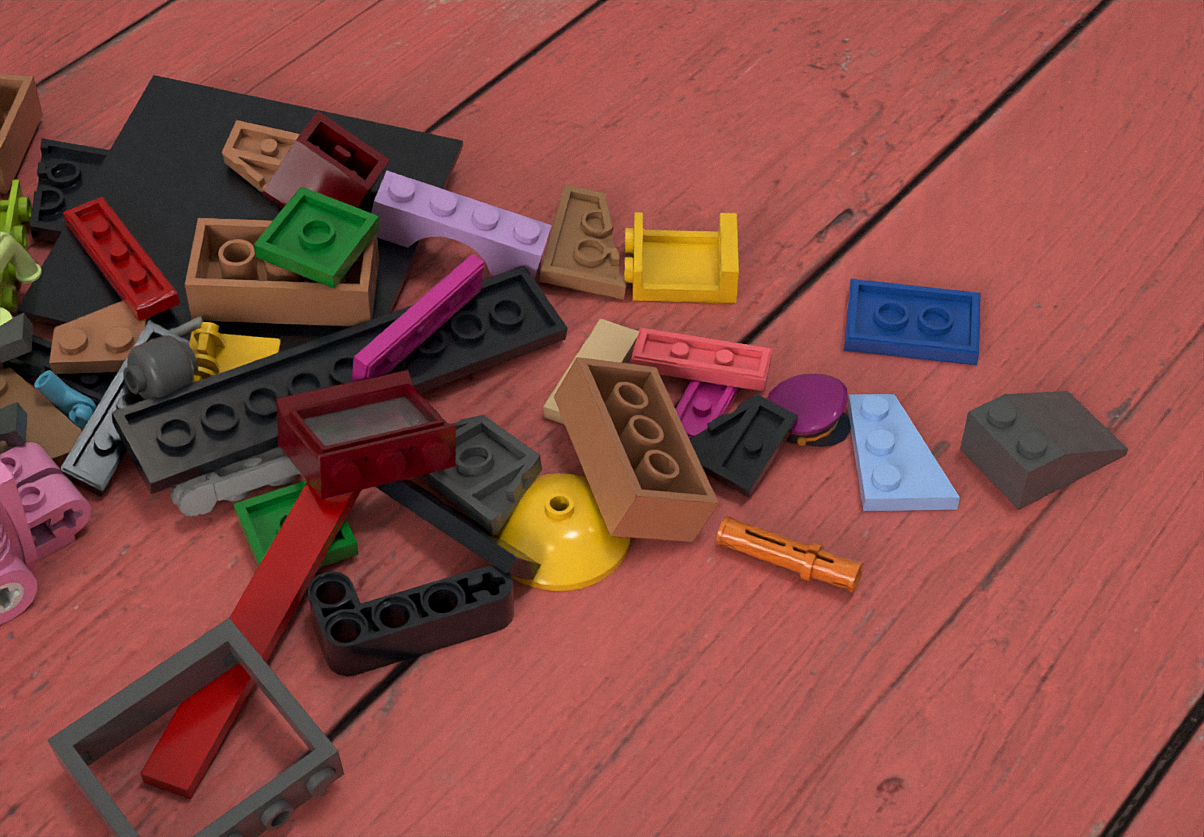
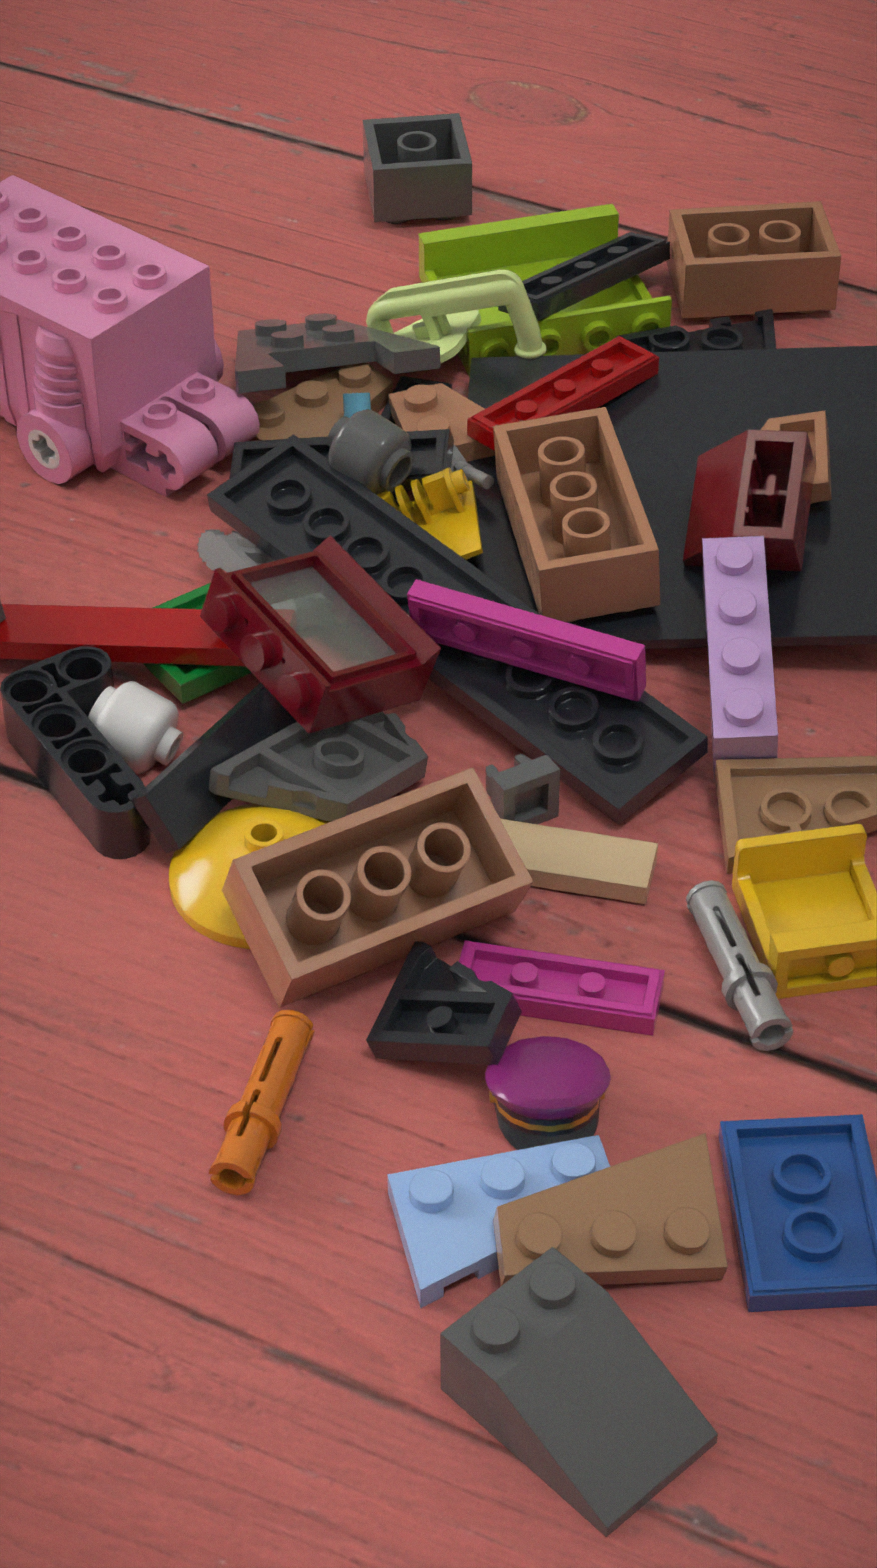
camera: 80 degrees right, 5 degrees down
(317, 237) = (593, 494): green plate -> none
(392, 570) = (138, 725): none -> white head
(533, 372) = (525, 791): none -> dark grey tile
(703, 359) = (603, 954): coral tile -> none
(728, 303) = (747, 982): none -> light grey pin
(927, 397) = (625, 1222): none -> medium nougat wing

